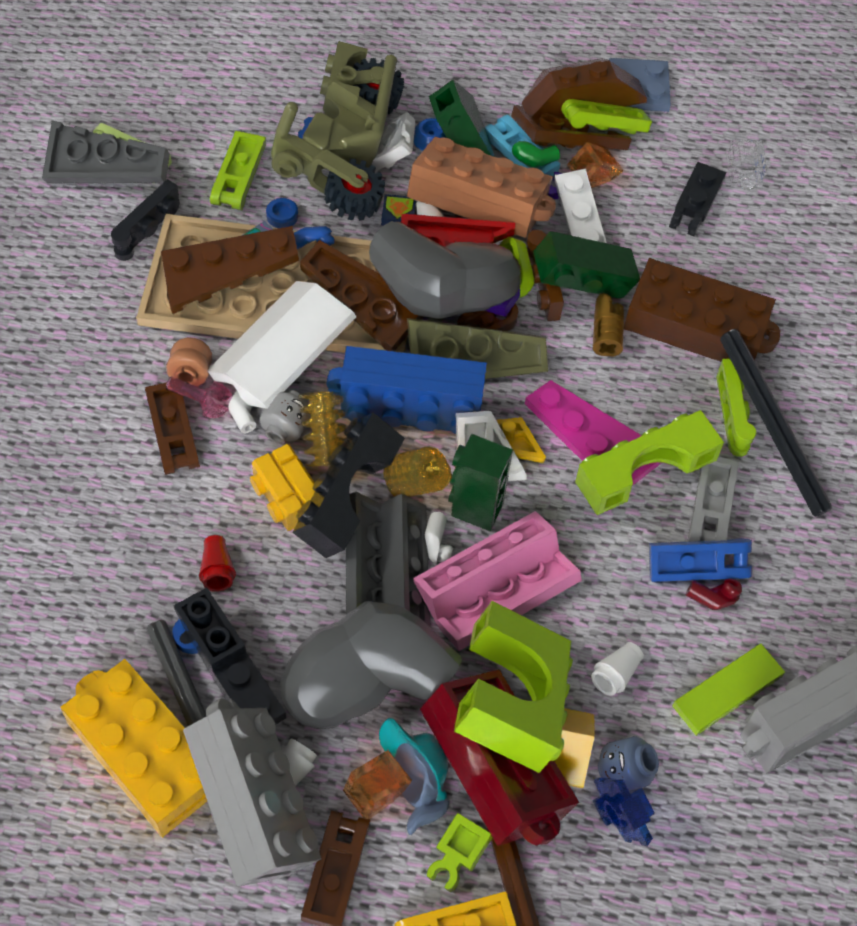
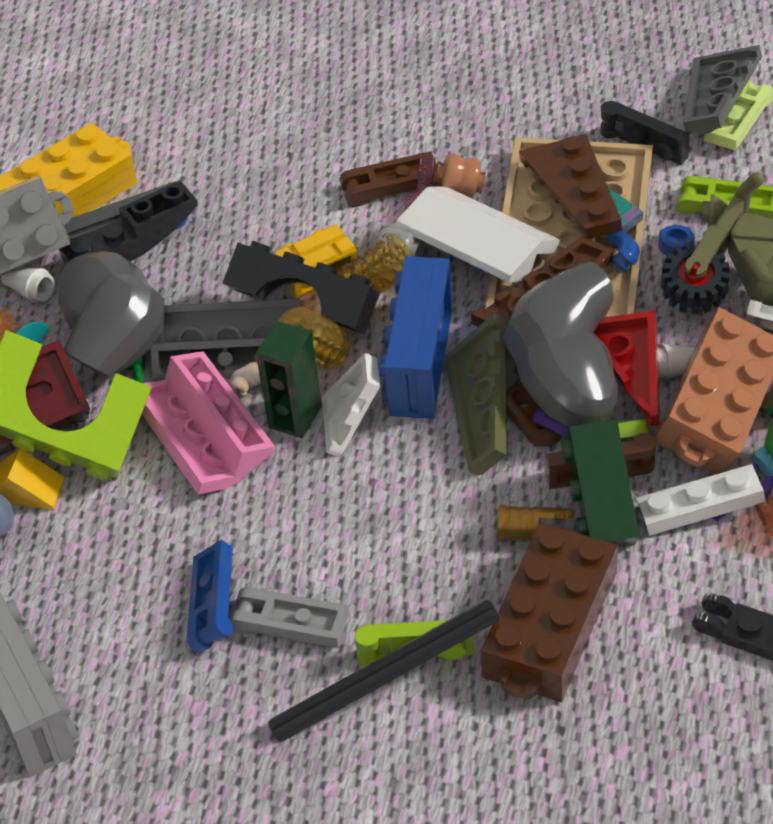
camera: 100 degrees right, 10 degrees down
(216, 565) = (236, 220): red cone -> none
(395, 206) = (688, 331): tile -> none
(521, 439) = (376, 440): yellow piece -> none
(580, 424) = (371, 521): dark pink wing -> none
(617, 669) = (93, 520): white cone -> none
(684, 443) = (345, 571): lime arch -> none
(717, 597) = (170, 614): dark red arm -> none
(728, 689) = (64, 622): lime tile -> none

